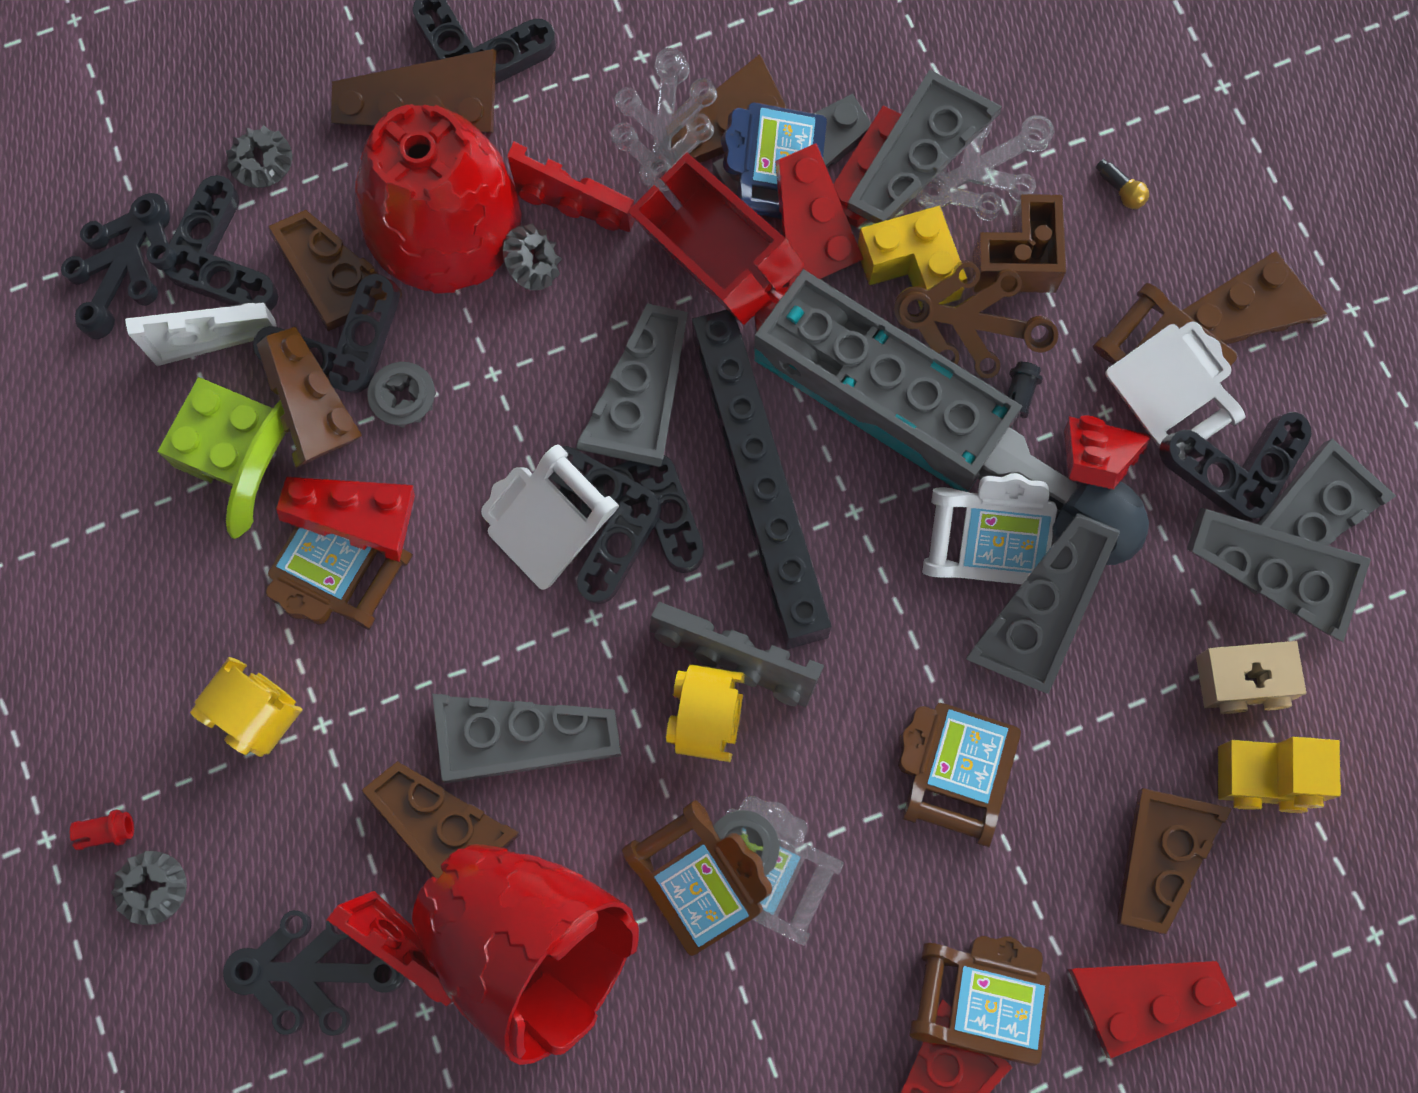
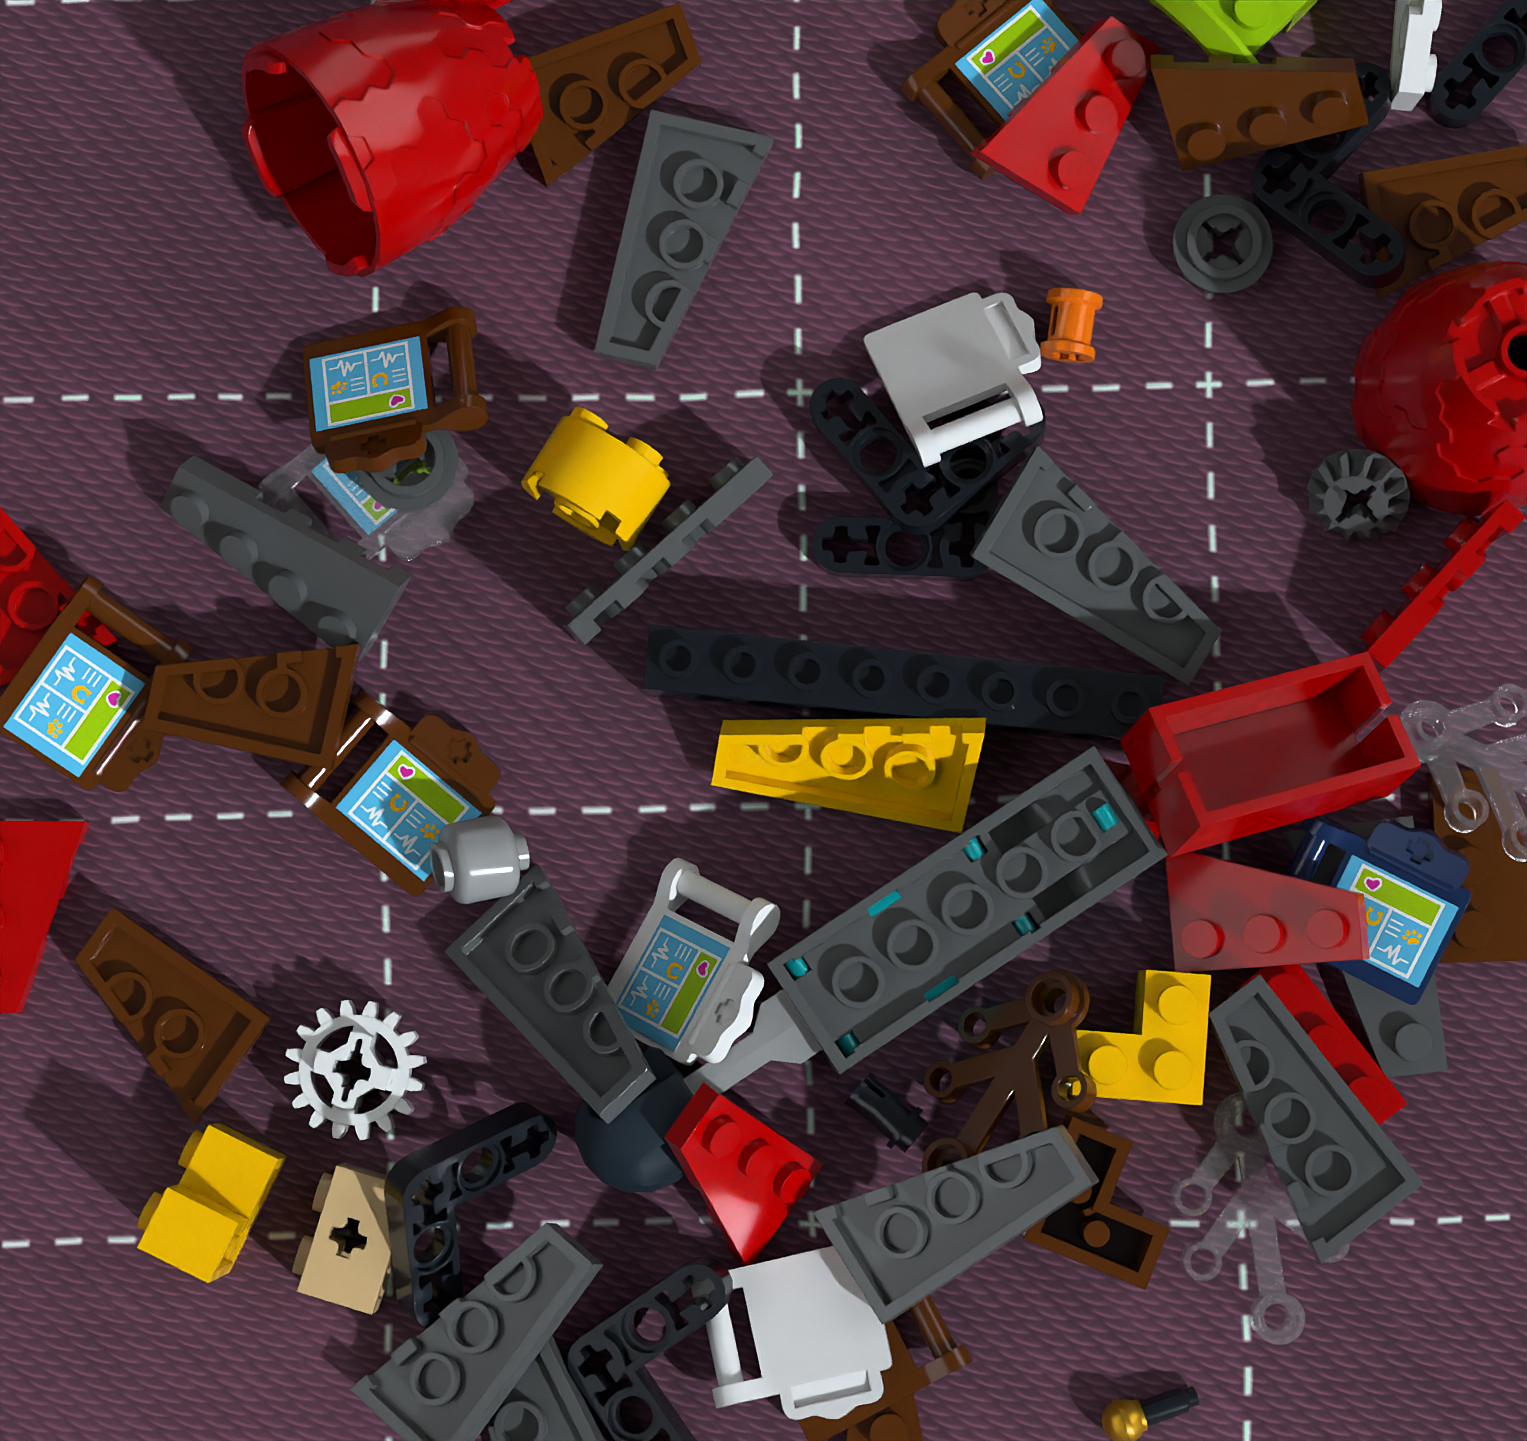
camera: 110 degrees right, 10 degrees up
(487, 462) = (1071, 325): none -> orange bush
(819, 477) = (872, 767): none -> yellow wing
(840, 905) = (304, 572): none -> dark grey wing
(947, 879) = (263, 704): none -> reddish brown wing
(982, 693) = (478, 859): none -> light grey head
(1078, 317) = (943, 1222): none -> dark grey wing
(1146, 701) = (328, 1063): none -> white gear
(1205, 633) = (510, 1145): none -> black beam

